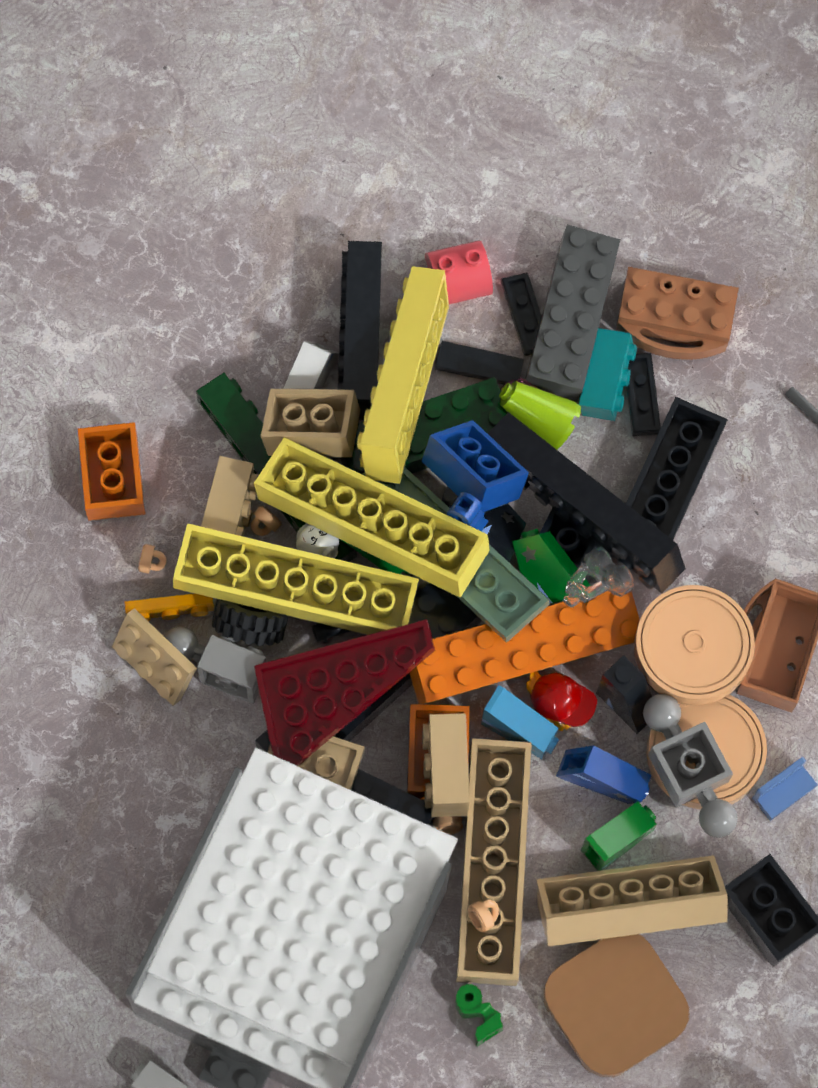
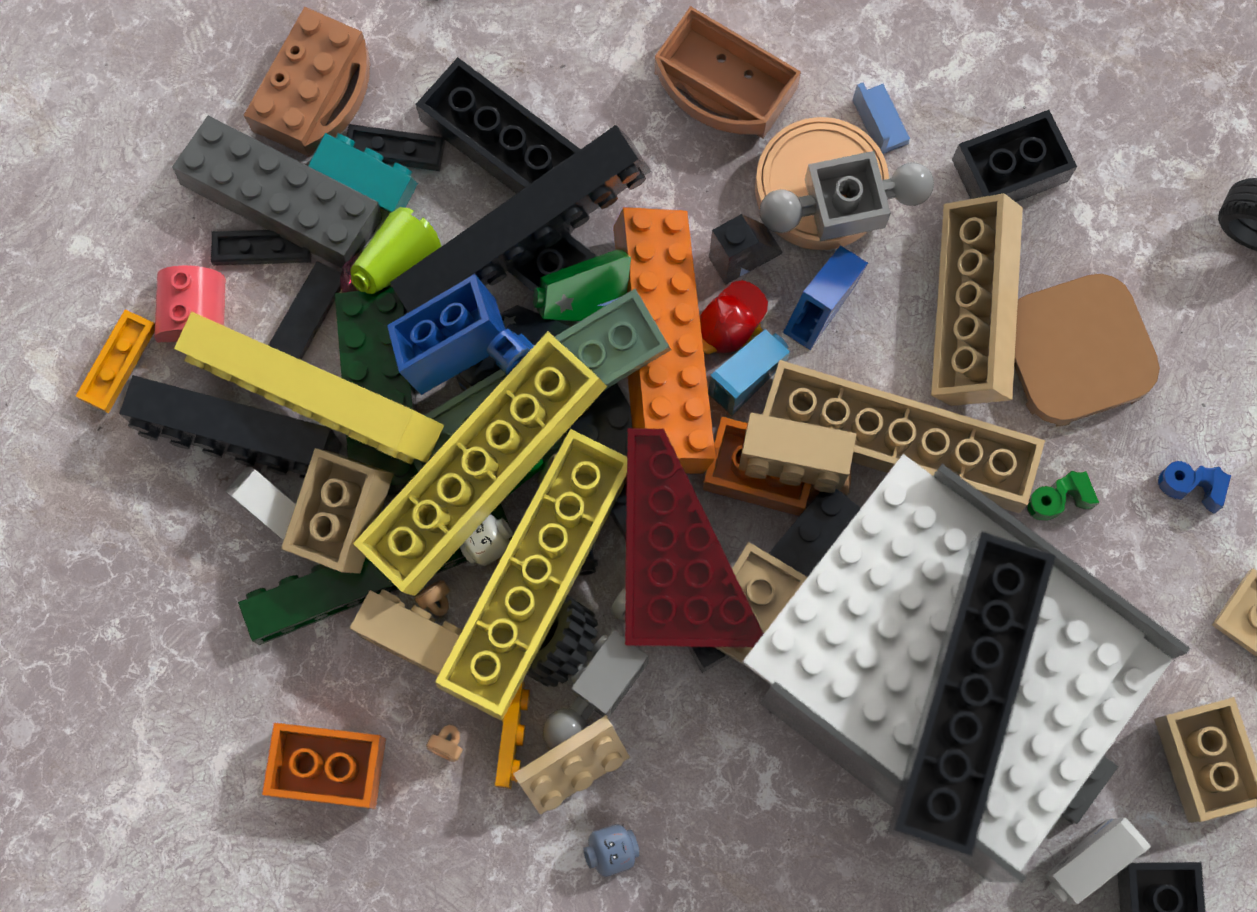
camera: 70 degrees left, 5 degrees up
(94, 706) = (611, 850): none -> sand blue head
(263, 917) = (971, 695): none -> black brick
(398, 230) = (116, 361): none -> light orange plate
(481, 916) = (970, 458): light nougat tile -> none
(600, 567) = (599, 230): clear piece -> none
(618, 836) = (899, 298): green slope -> none
(694, 644) = (713, 156): light nougat brick -> none

